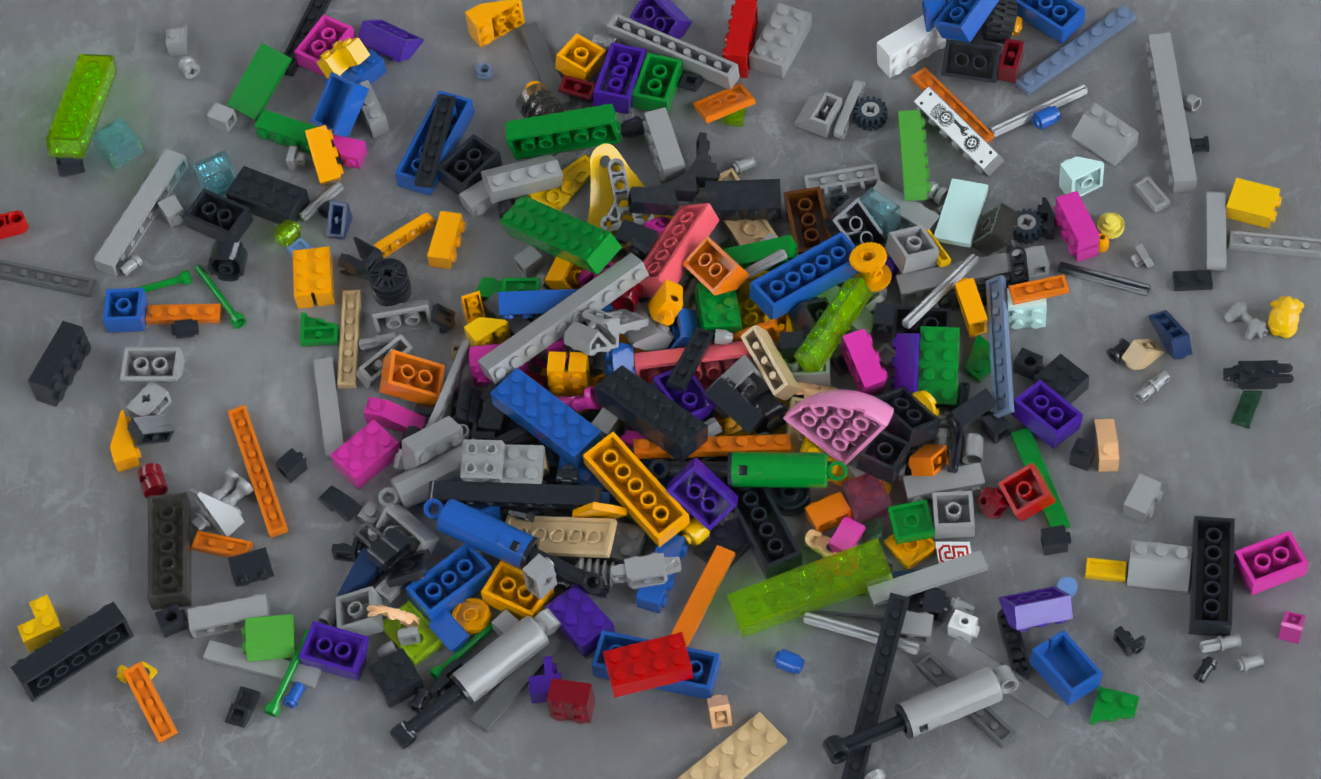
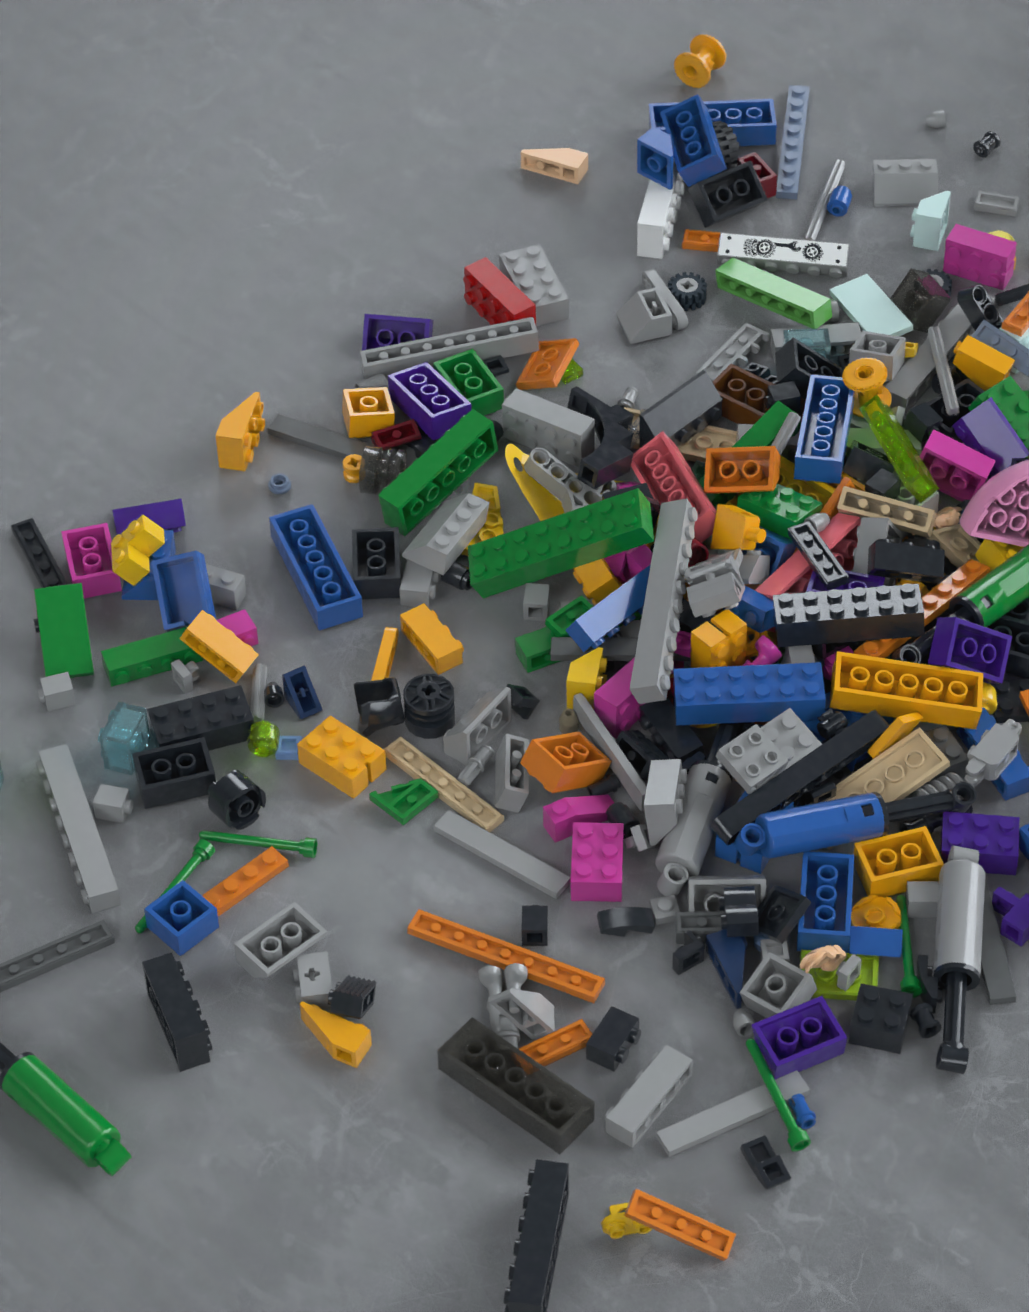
camera: 50 degrees left, 10 degrees down
(43, 627) = (471, 1250): yellow brick -> none
(131, 264) = (129, 874): light grey pin -> none
(152, 480) = (416, 1043): dark red wheel -> none
(165, 615) = (595, 1154): black brick -> none
(185, 328) = (264, 891): black brick -> none
(269, 637) = (718, 1079): bright green brick -> none
(386, 649) = (839, 1003): light grey hose -> none
(435, 141) = (325, 558): black tile -> none
(472, 306) = (541, 672): light orange slope -> none
(540, 576) = (921, 818): light grey brick -> none
(811, 234) = (784, 392): none -> black brick
(1048, 218) = (935, 262): black slope -> none
(1171, 113) = (935, 135): light grey brick -> none

